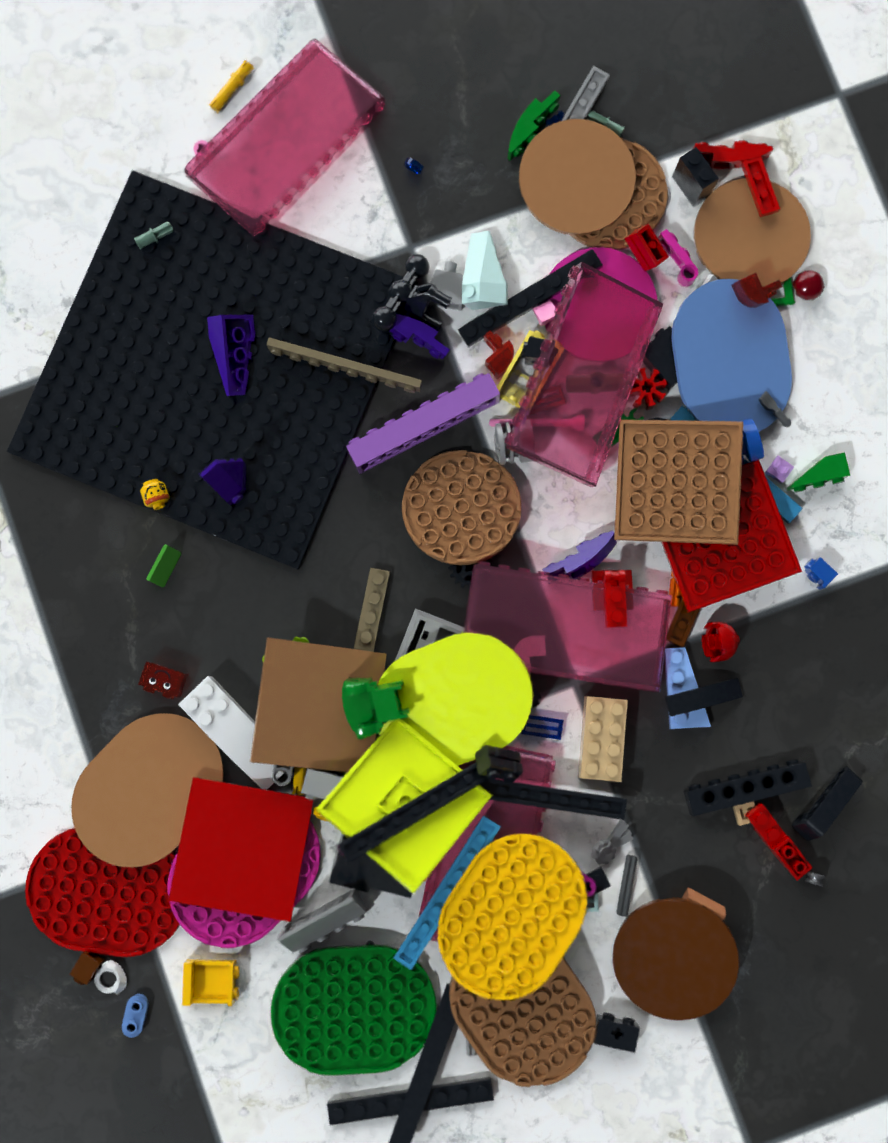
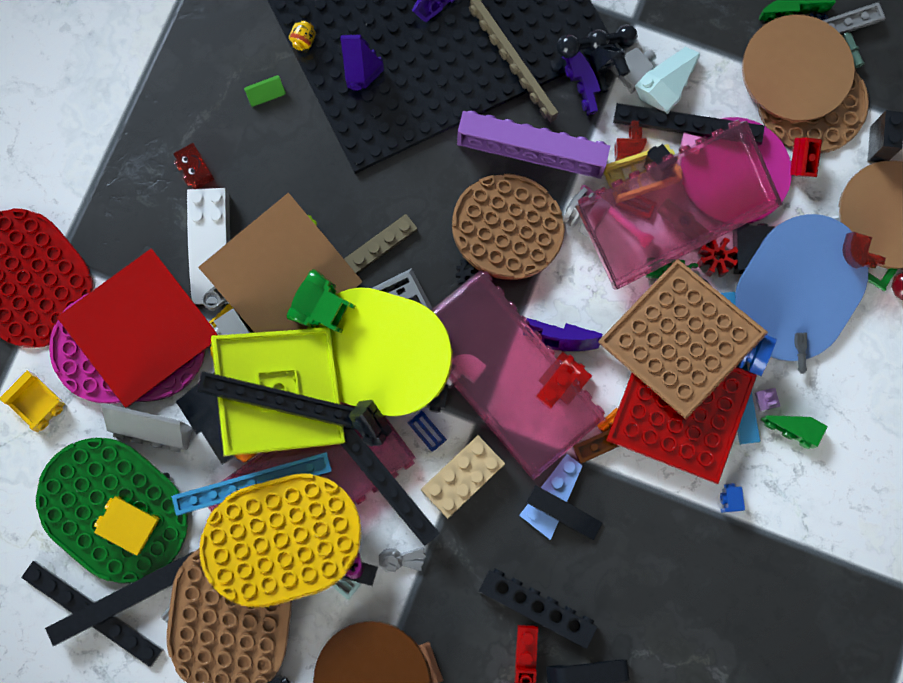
camera: 40 degrees right, 5 degrees down
(138, 789) = (108, 223): medium nougat tile -> none
(378, 1012) = (126, 525): none -> yellow panel
(626, 885) = (385, 600): dark grey axle -> none
(680, 256) = (826, 186): dark pink plate -> none
(720, 641) = (612, 484): red cylinder -> none
(740, 811) = (519, 619): tan plate -> none

